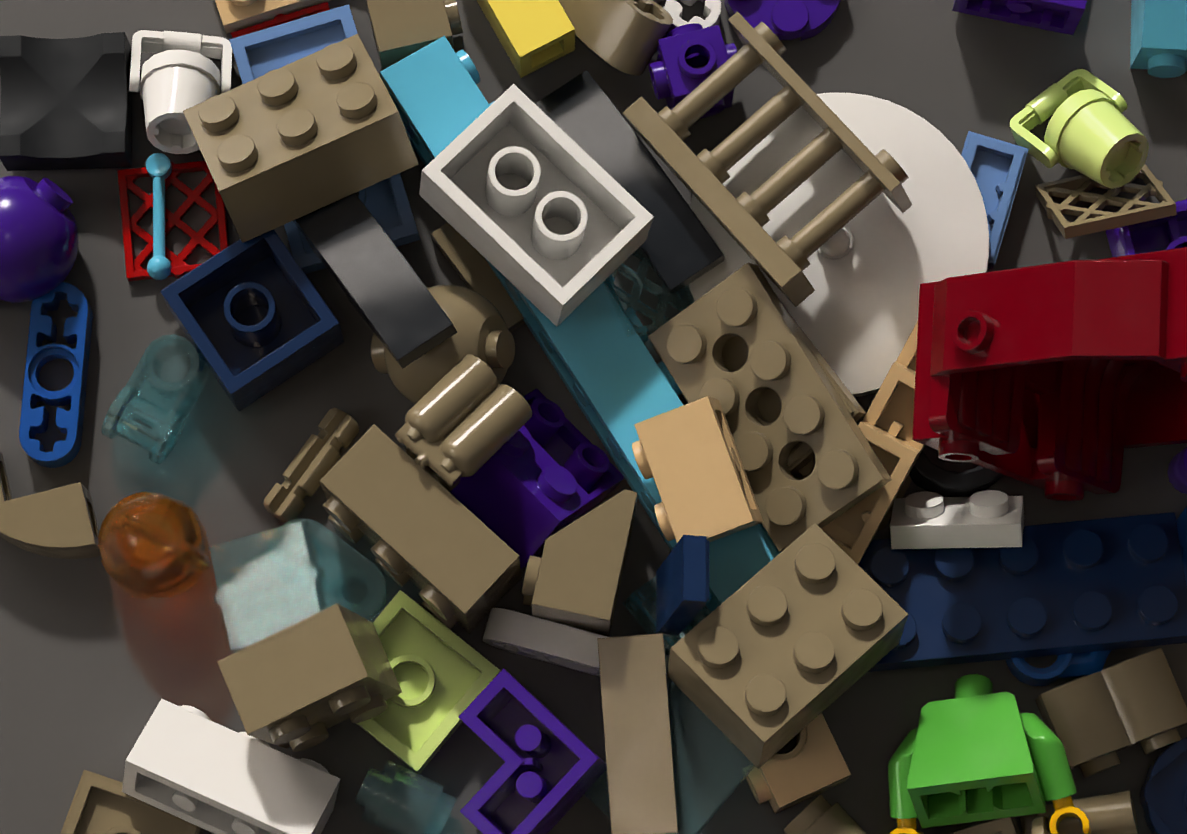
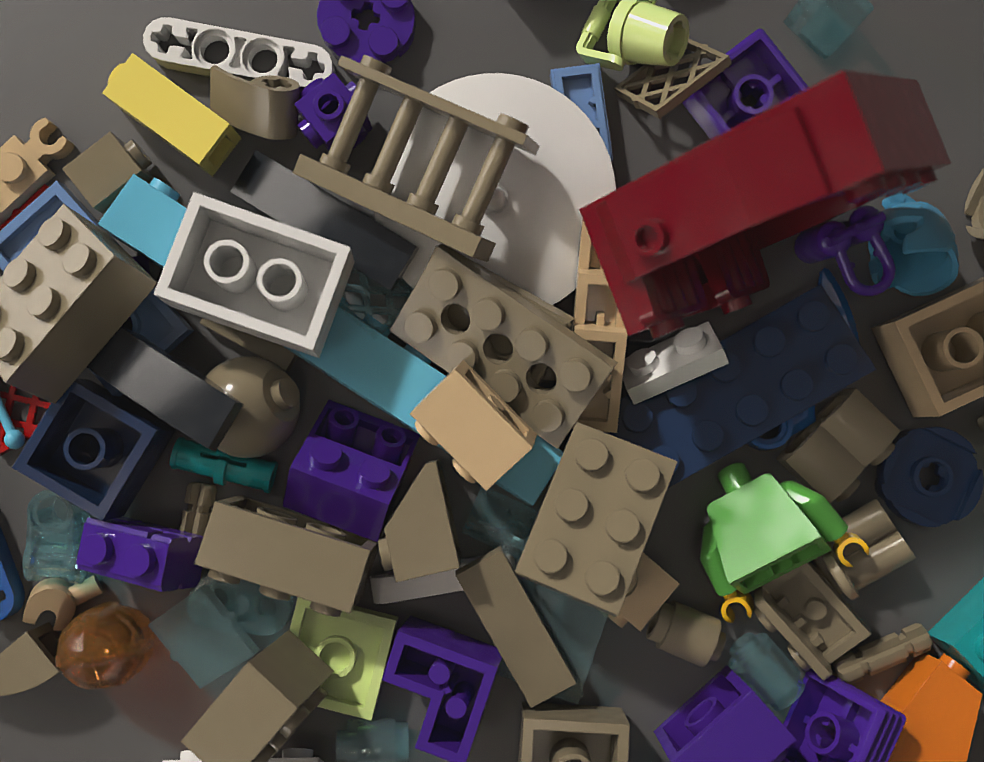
camera: 30 degrees left, 10 degrees up
(126, 469) = (61, 598): none -> tan piece
(250, 454) = (140, 553): none -> dark purple brick
(369, 394) = (223, 467): none -> teal pin
(462, 422) = (280, 469): dark tan piece -> none
(682, 584) = (501, 514): dark blue tile -> none

